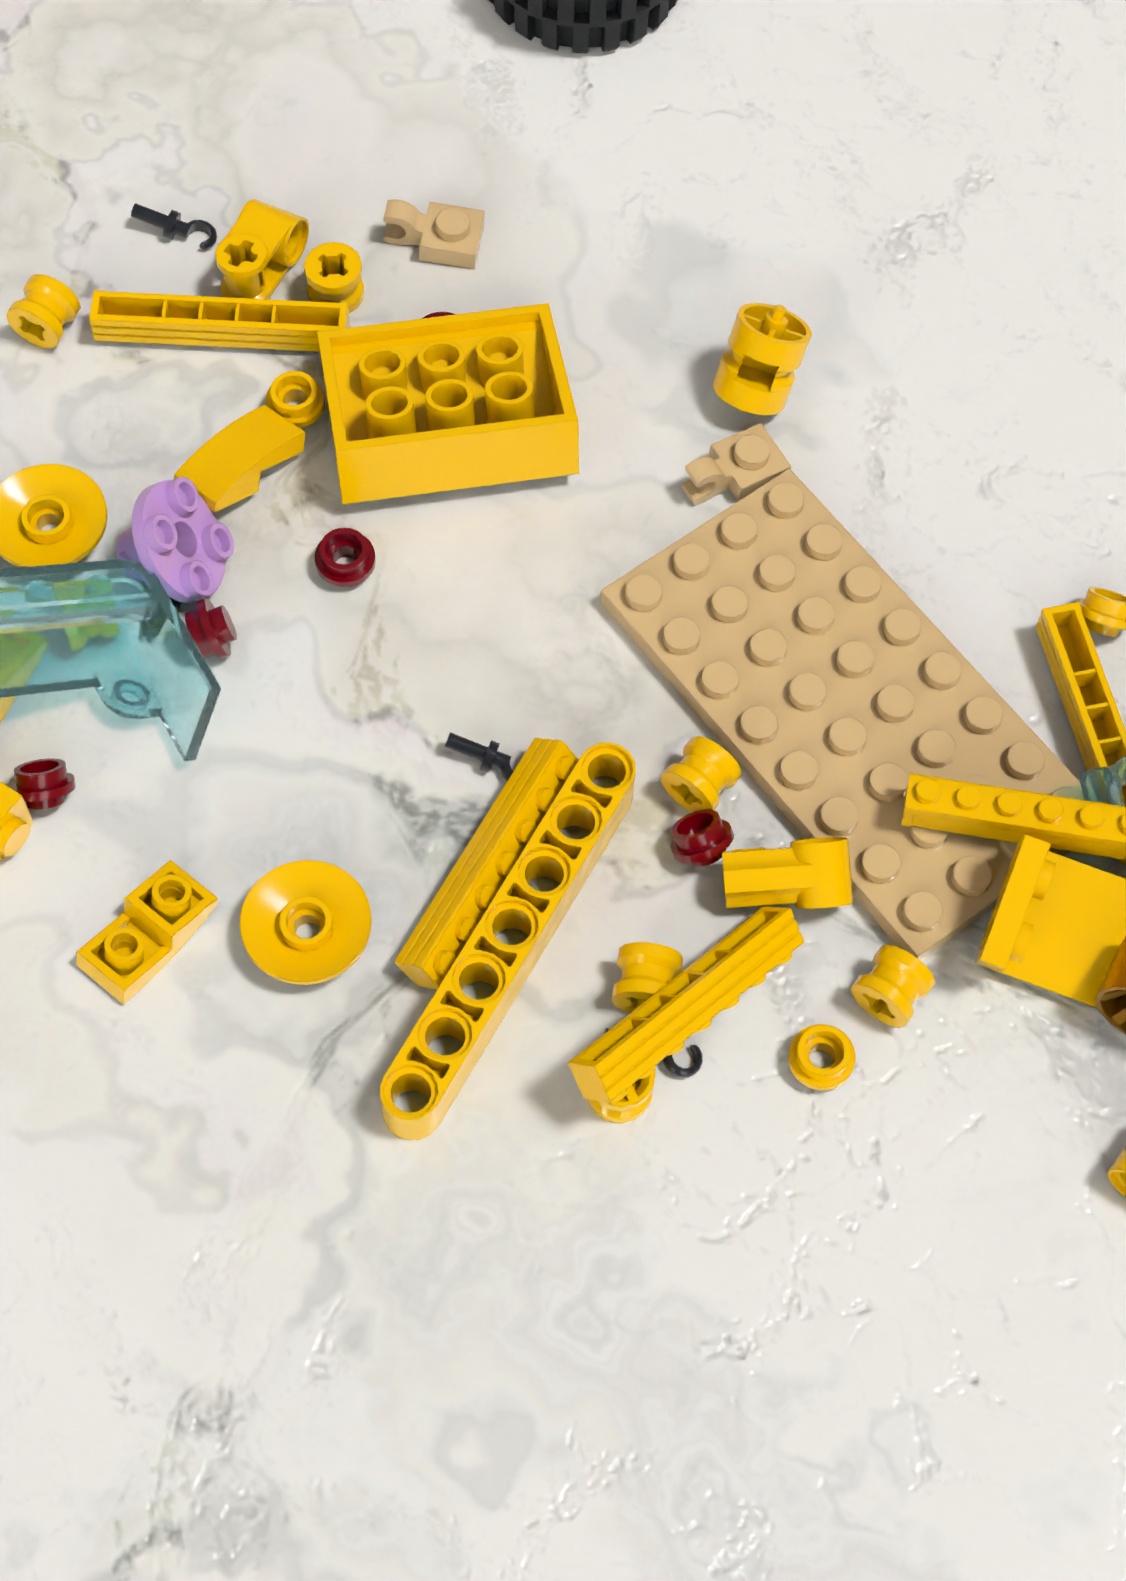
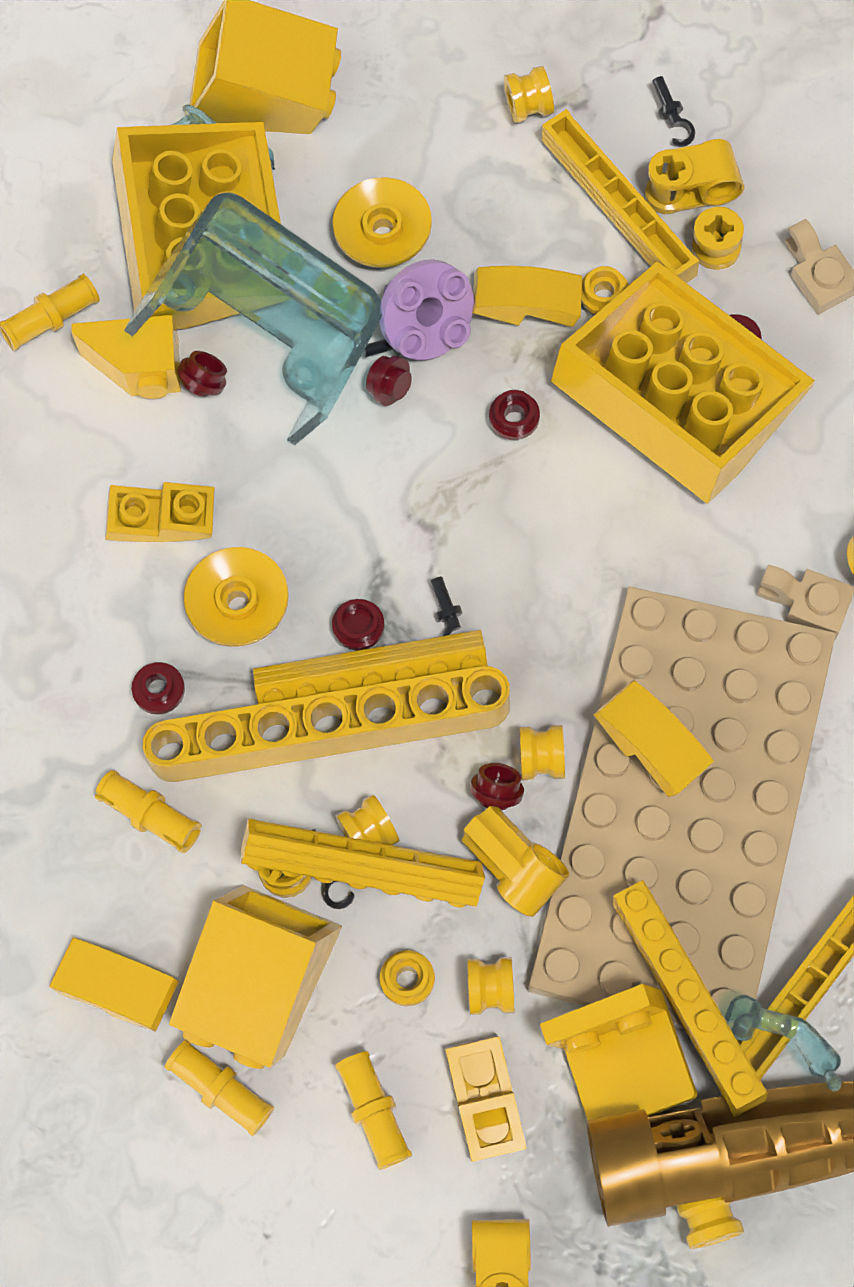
camera: 60 degrees right, 5 degrees up
(331, 1085) = (160, 702): none -> dark red plate
(430, 839) = (358, 624): none -> dark red plate
(453, 1169) = (148, 811): none -> yellow pin
(607, 1336) = (114, 984): none -> yellow slope
(717, 1190) = (252, 976): none -> yellow slope
(765, 664) = (656, 736): none -> yellow slope
(798, 1311) = (219, 1087): none -> yellow pin
(932, 1182) = (373, 1110): none -> yellow pin
(994, 1078) = (485, 1099): none -> yellow slope

